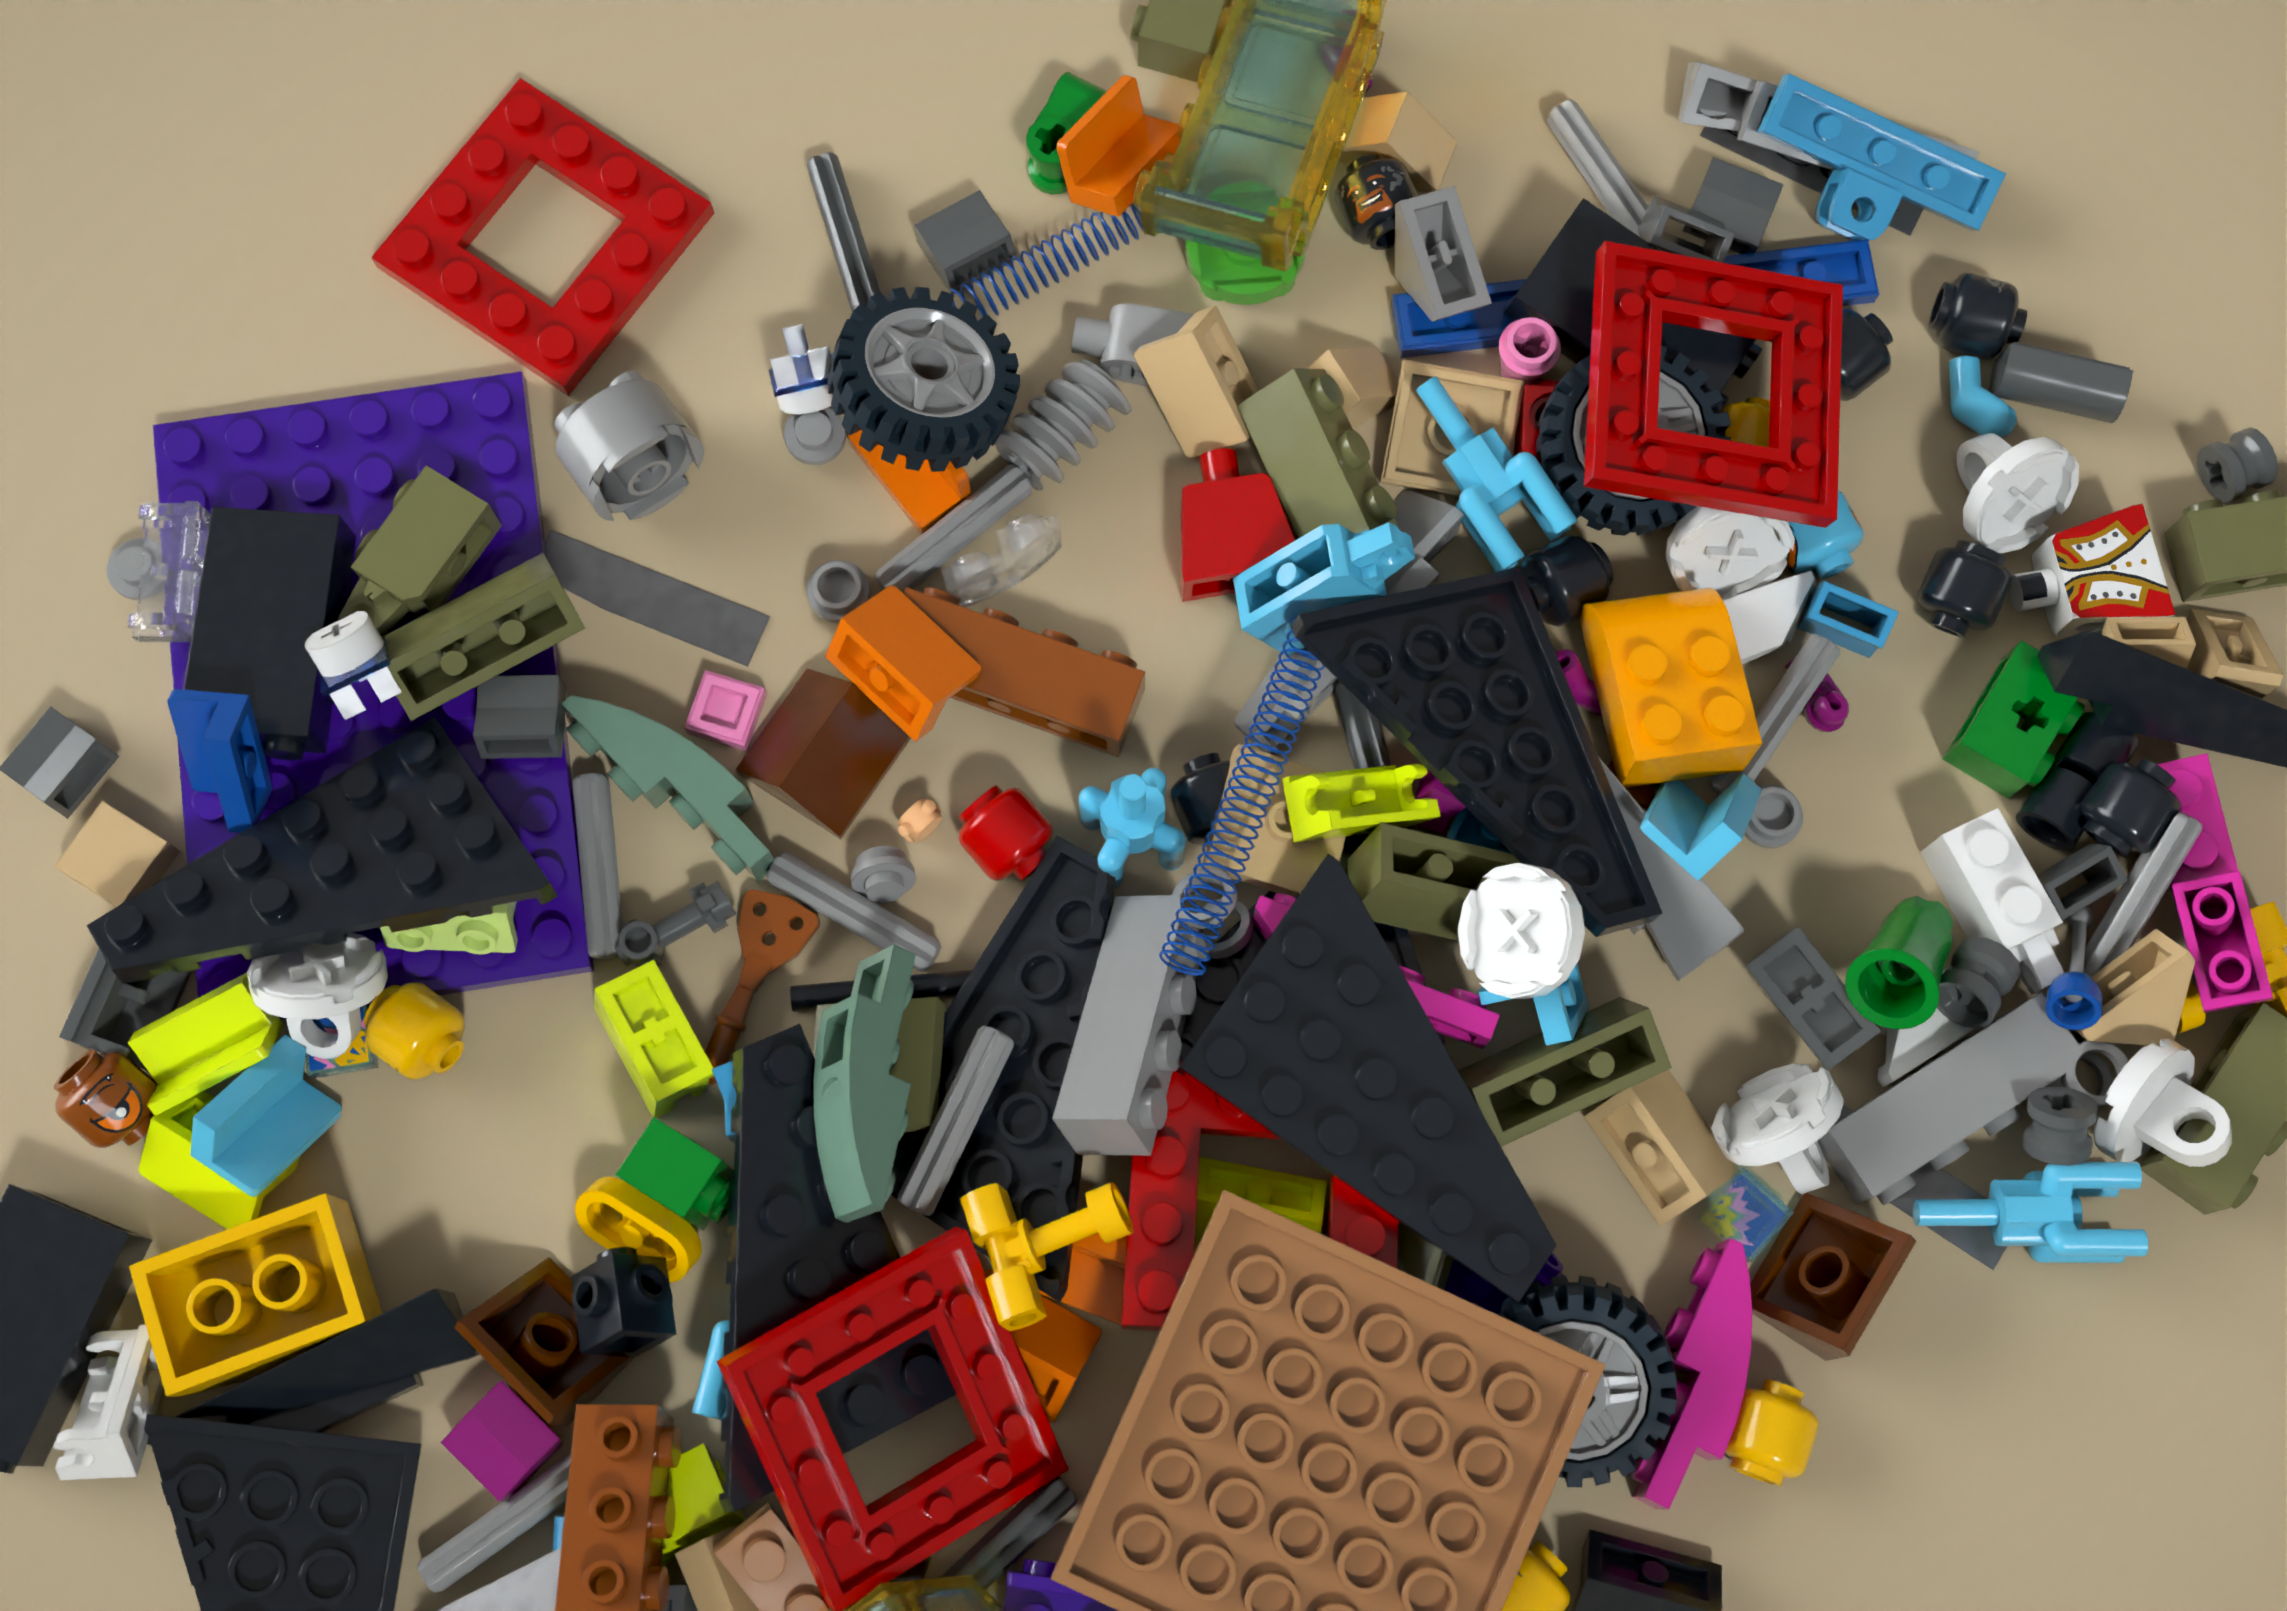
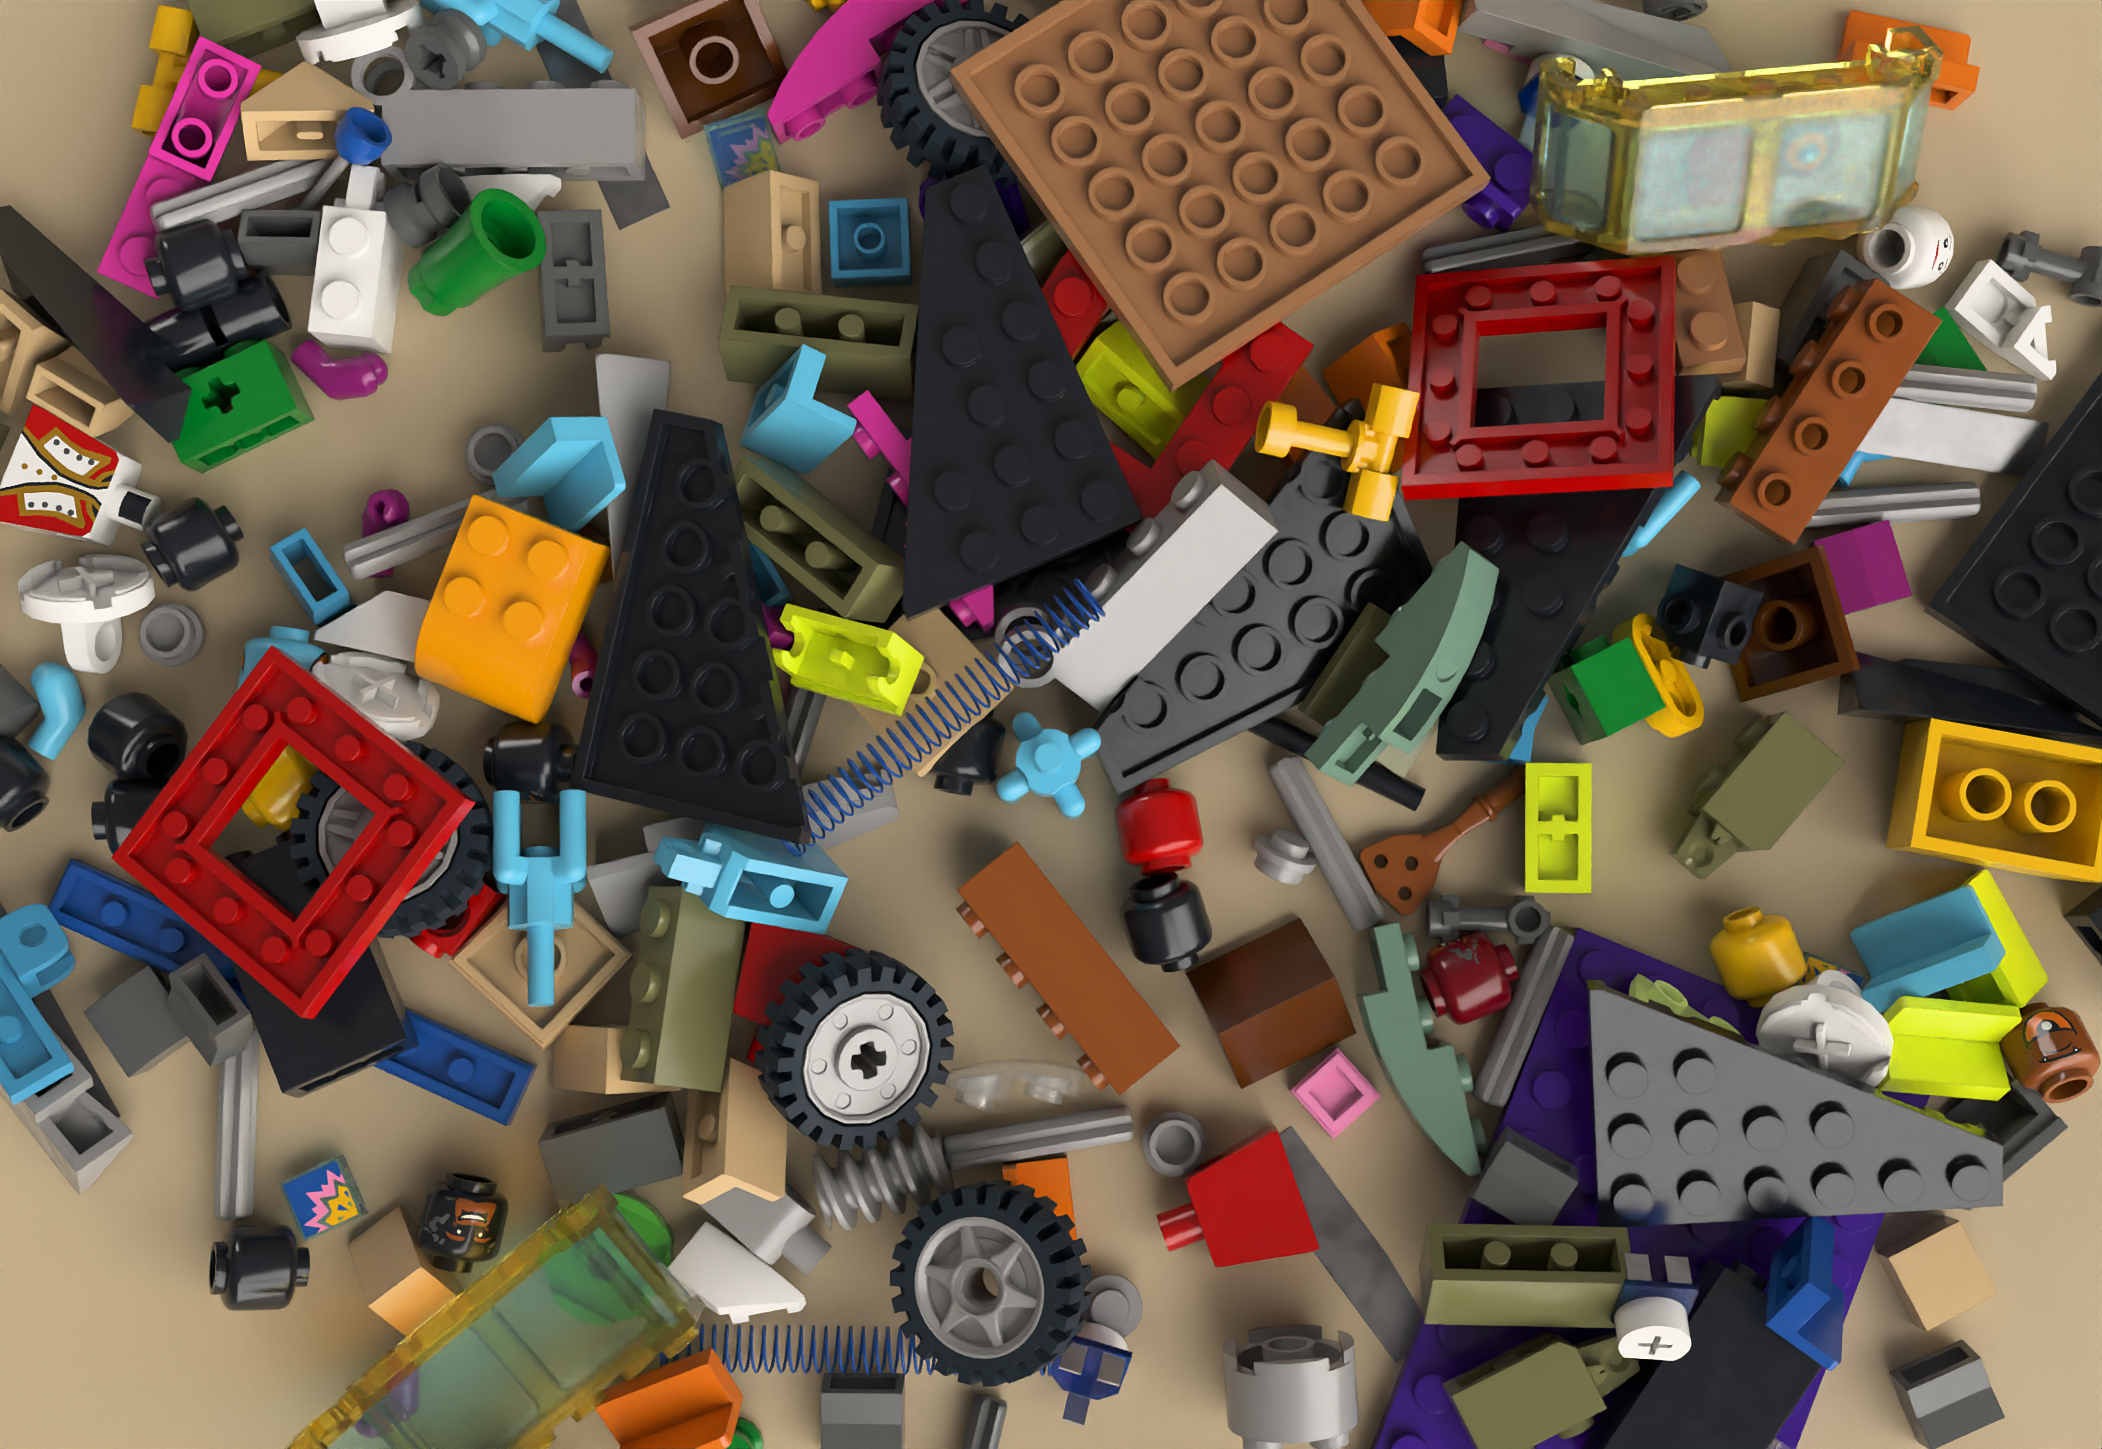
camera: 145 degrees left, 10 degrees up
(493, 1173) = (1755, 793): none -> olive hinge
(663, 866) = (1468, 978): none -> dark red head
(749, 572) = (1243, 1205): none -> red torso
(901, 660) = (1162, 1026): orange panel -> none
(919, 820) = (1224, 888): light nougat piece -> none
(953, 761) = (1166, 921): none -> black head
(955, 1120) = (1349, 596): light grey axle -> none
(1138, 277) = (732, 1277): none -> white slope
(1149, 498) = (854, 1049): none -> wheel
(1297, 319) = (615, 1147): none -> dark grey hinge
(1437, 255) = (446, 1126): light grey slope -> none
(1499, 163) = (323, 1198): none -> tile
(1513, 80) = (258, 1267): none -> black head
(1521, 931) = (790, 447): white tile -> none
(1528, 350) = (412, 990): bright pink cone -> none
(1579, 1197) = (870, 242): none -> dark azure piece
(1781, 1121) = (667, 194): white tile -> none
(1894, 410) = (137, 738): none -> black head
(1929, 511) = (171, 634): none -> light grey plate
(1944, 802) = (340, 378): none -> magenta arm

